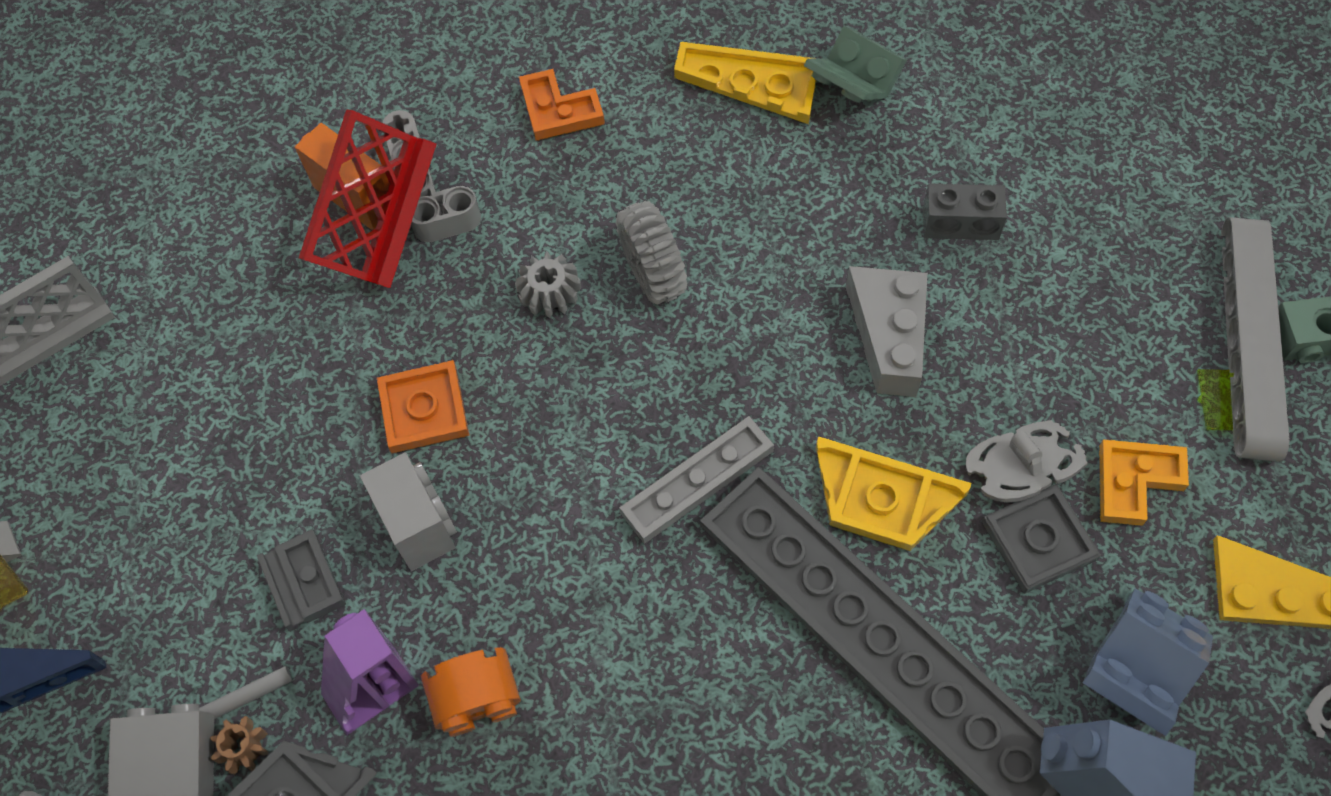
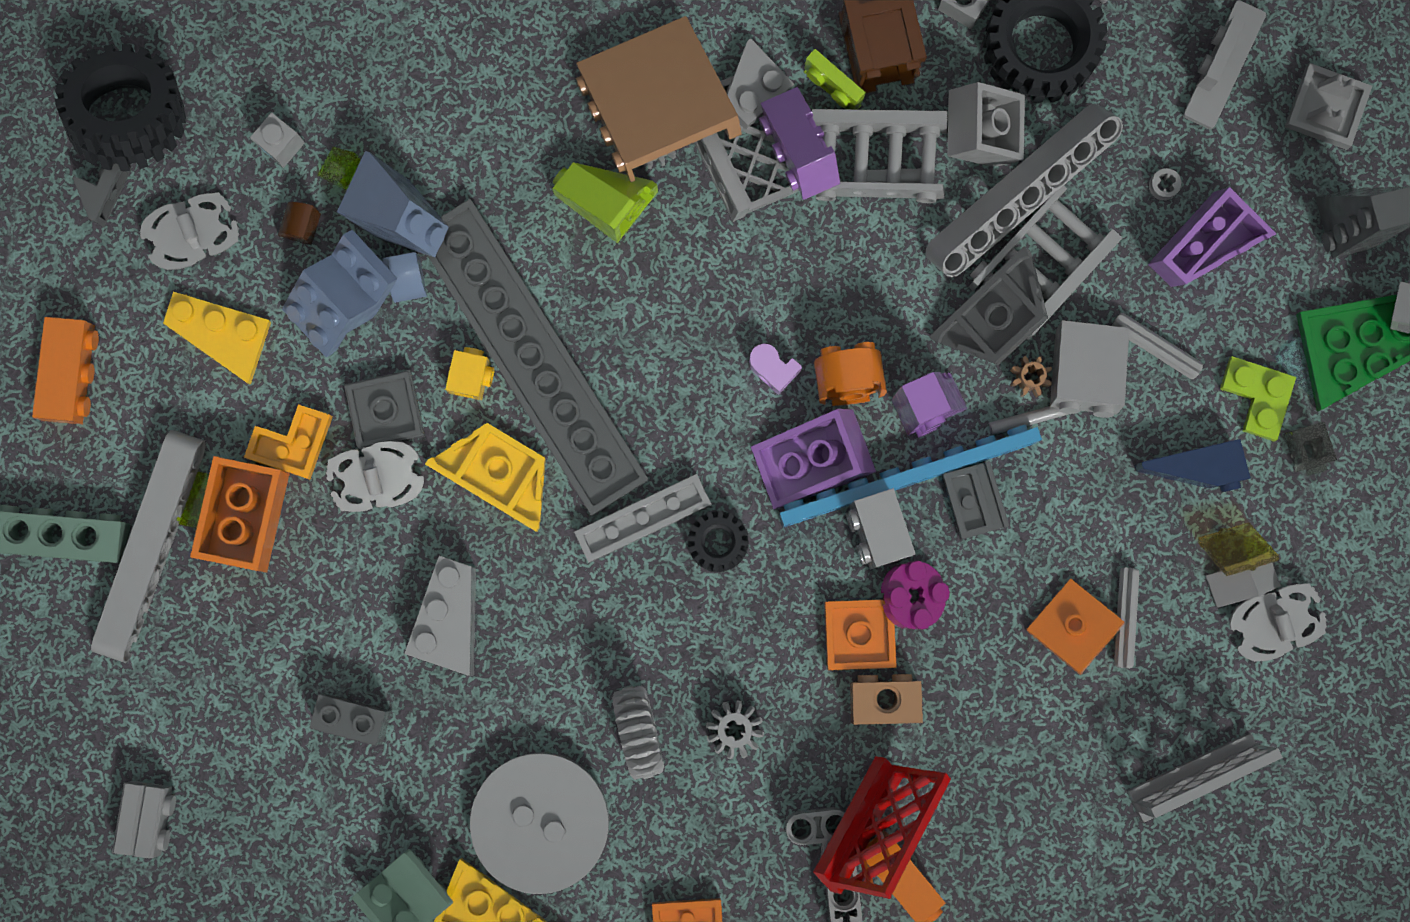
camera: 175 degrees left, 20 degrees up
(114, 488) = (1128, 613): none -> light grey axle
(172, 462) = (1075, 626): none -> orange plate
(348, 445) = (931, 591): none -> magenta plate
(367, 334) = (906, 706): none -> medium nougat brick
(399, 581) = (922, 470): none -> dark azure plate
(502, 587) = (813, 458): none -> medium lavender slope
(573, 684) = (770, 369): none -> lavender leg
(599, 449) = (724, 521): none -> black tyre
(736, 164) = (539, 823): none -> light grey brick
(952, 599) = (469, 373): none -> yellow brick
(1073, 703) = (410, 277): none -> sand blue brick
(1141, 88) = (143, 819): none -> light grey brick
(1166, 381) = (240, 514): none -> orange brick
(1235, 748) = (299, 222): none -> reddish brown brick

